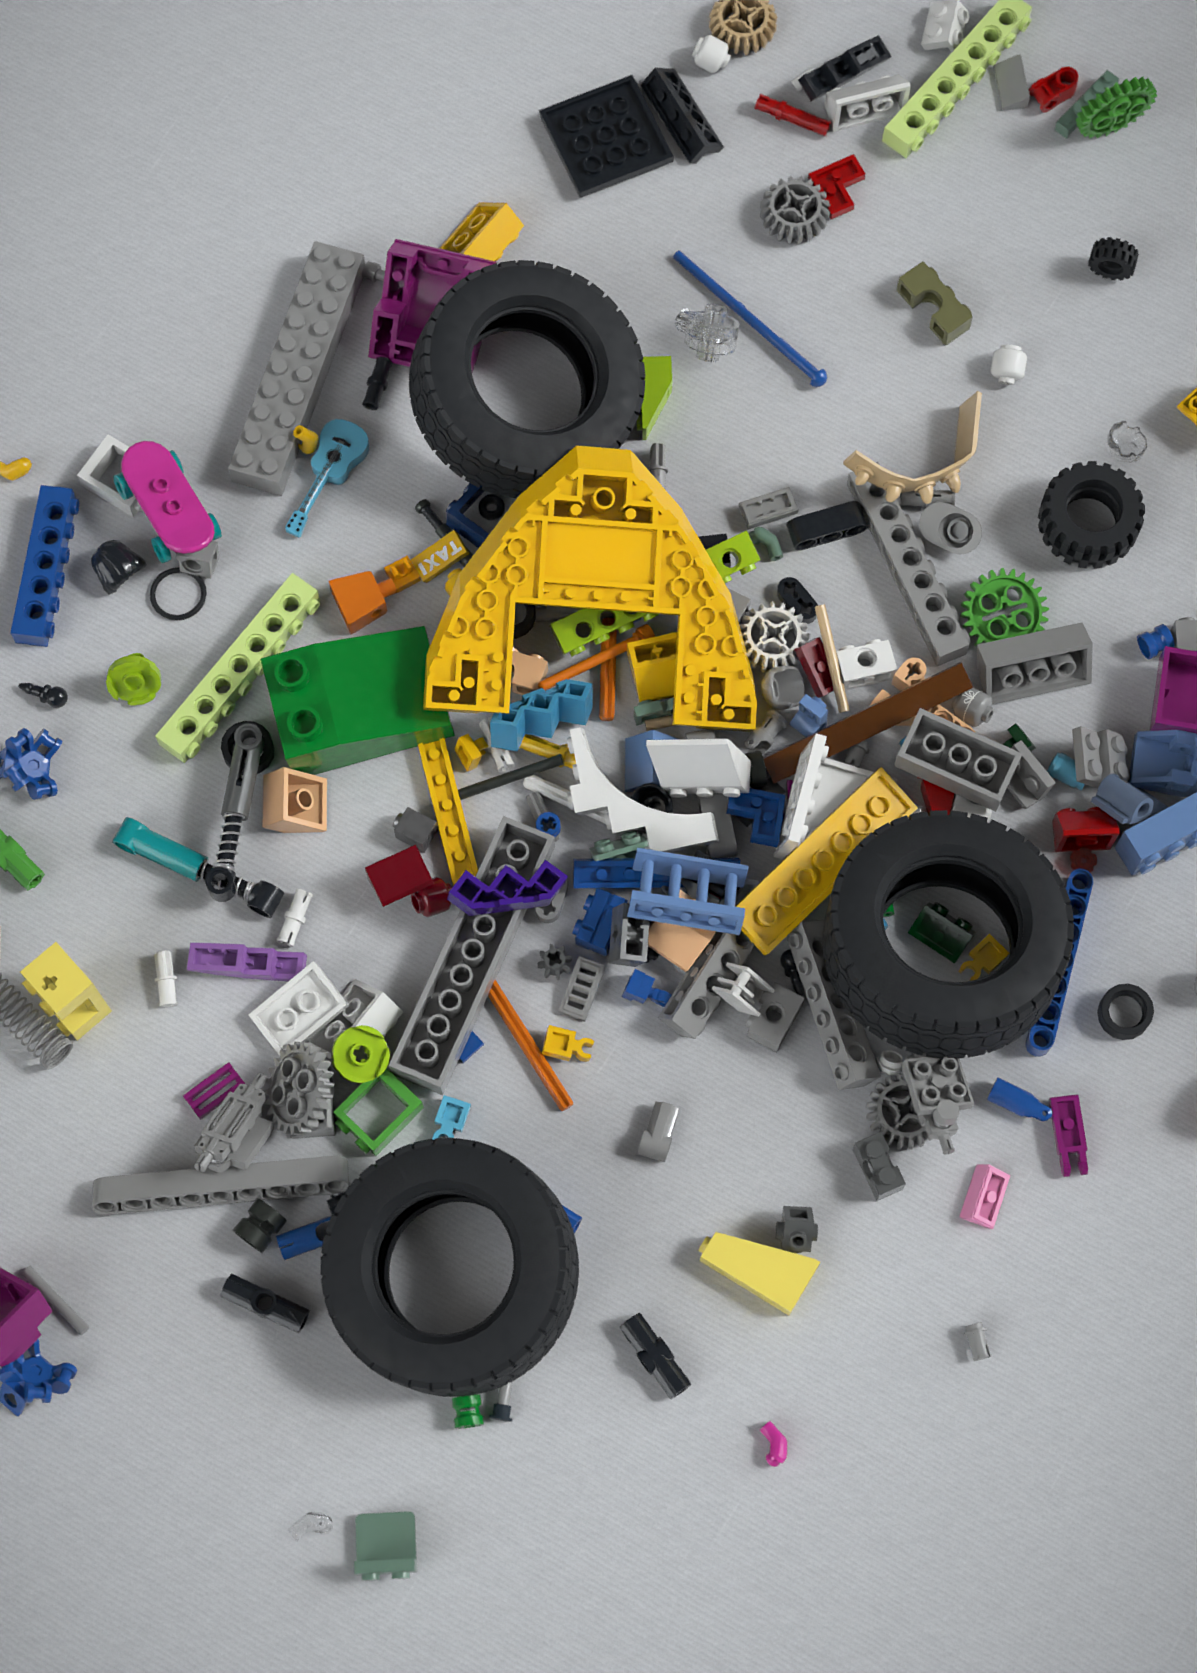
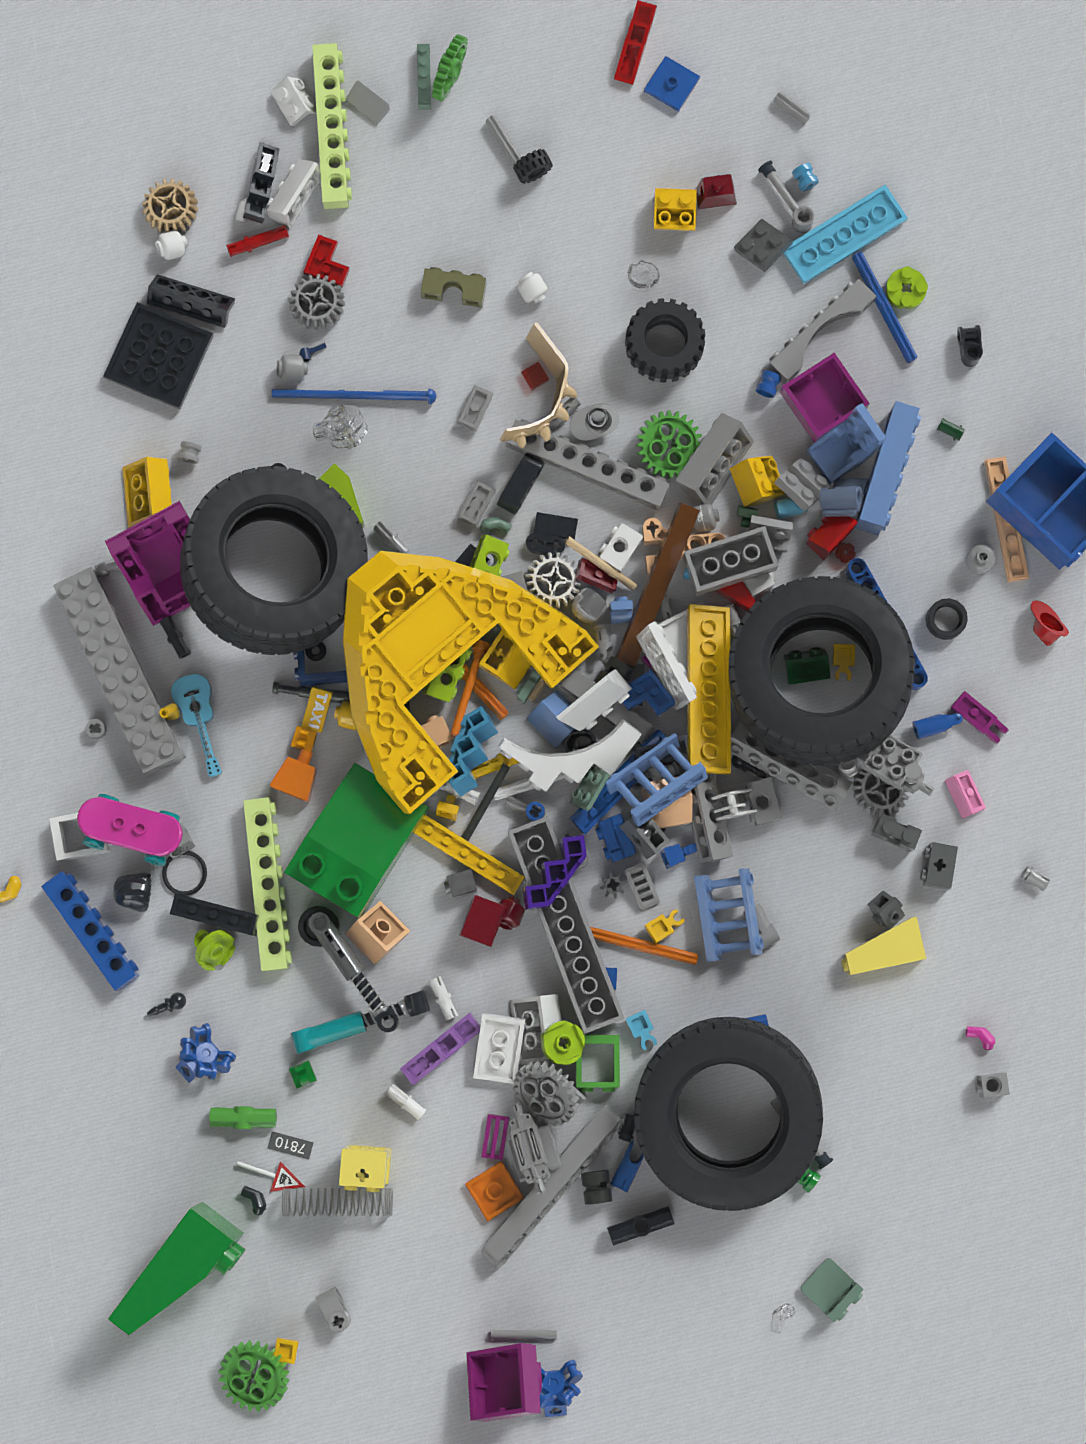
camera: 45 degrees left, 10 degrees up
(24, 921) = (290, 1145): none -> dark grey sticker
(99, 867) = (302, 1074): none -> green tile
(163, 1139) = (494, 1190): none -> orange tile
(164, 648) = (214, 914): none -> black fence
(220, 399) = (95, 722): none -> light grey bush
(550, 238) = (189, 452): none -> light grey wheel
(615, 1076) = (712, 928): none -> medium blue fence
(655, 1355) = (875, 1050): black piece -> none
(714, 246) = (291, 368): none -> light grey head
(741, 244) = (306, 352): none -> dark blue hand
(742, 1514) = (1001, 1081): none -> light grey brick
(824, 591) = (555, 525): none -> black tile
(850, 424) = (475, 408): none -> light grey plate
(883, 1253) = (947, 857): none -> dark grey brick
(935, 445) = (534, 376): none -> clear red tile
(1051, 90) = (396, 87): red piece -> none
(1055, 714) = (756, 480): none -> yellow slope
(1109, 212) = (503, 139): none -> light grey axle

